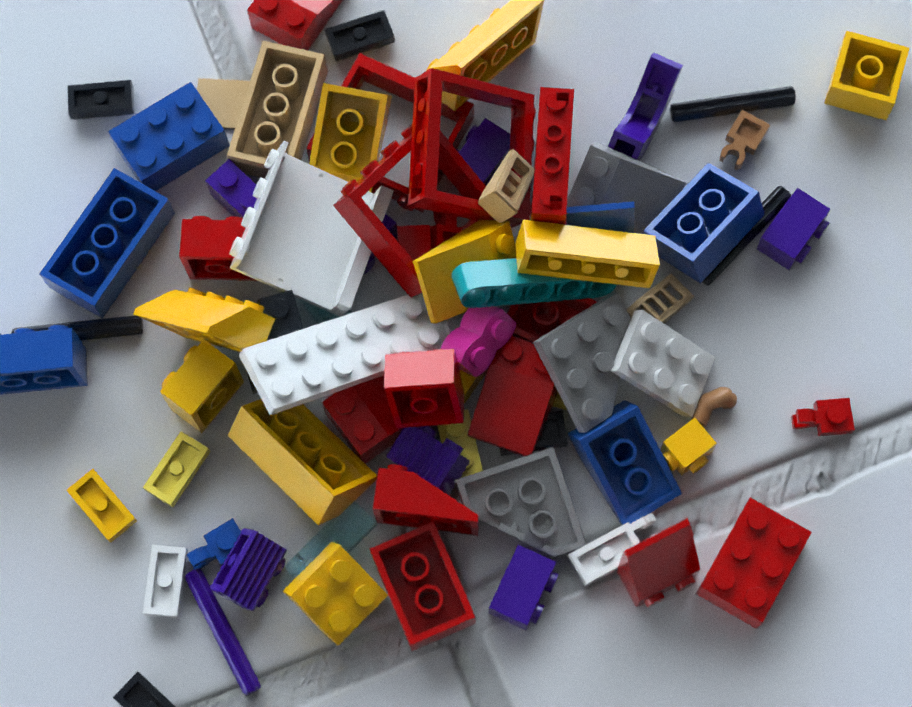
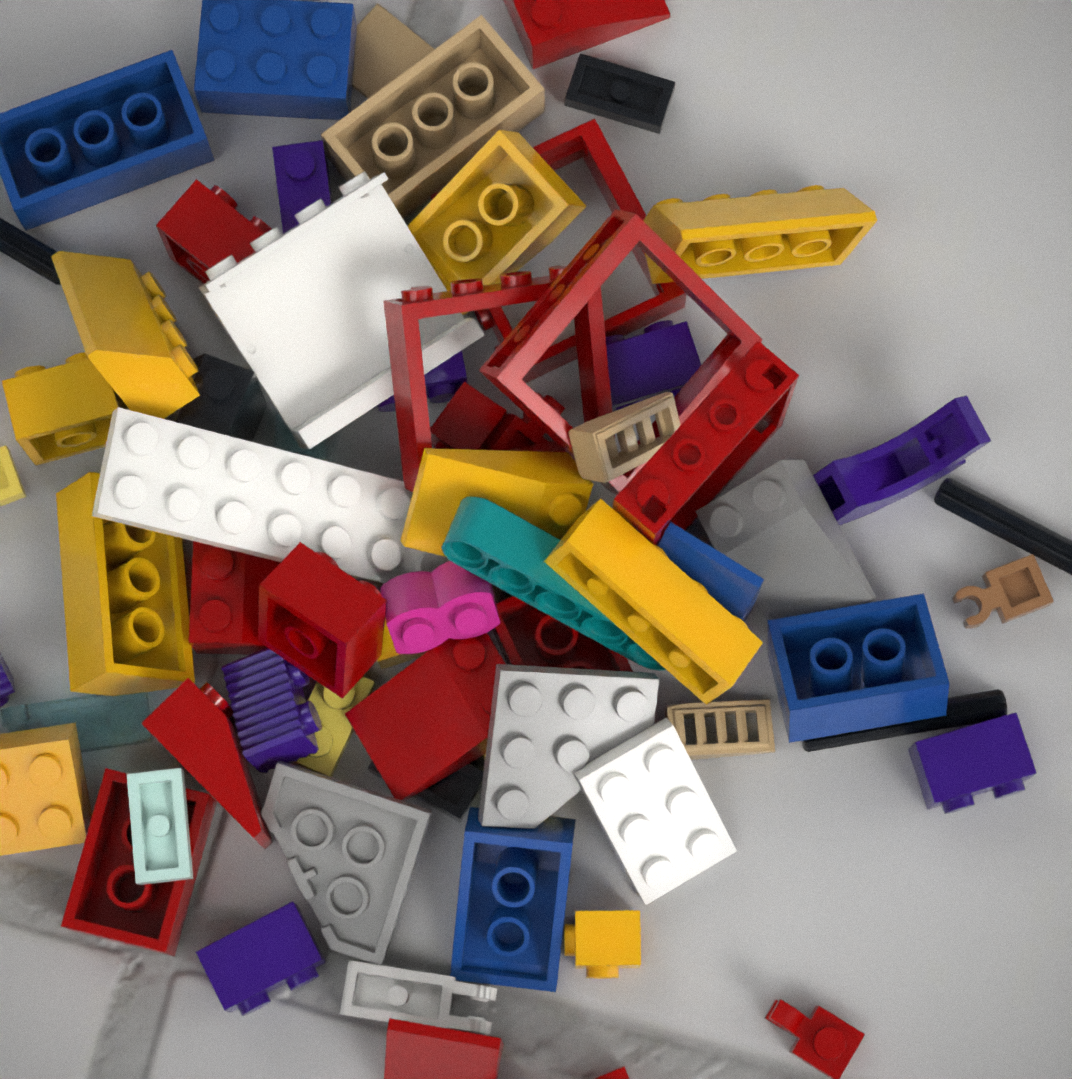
camera: 35 degrees right, 5 degrees up
(423, 553) = (159, 826): none -> light aqua plate
(712, 400) = (688, 904): medium nougat arm -> none

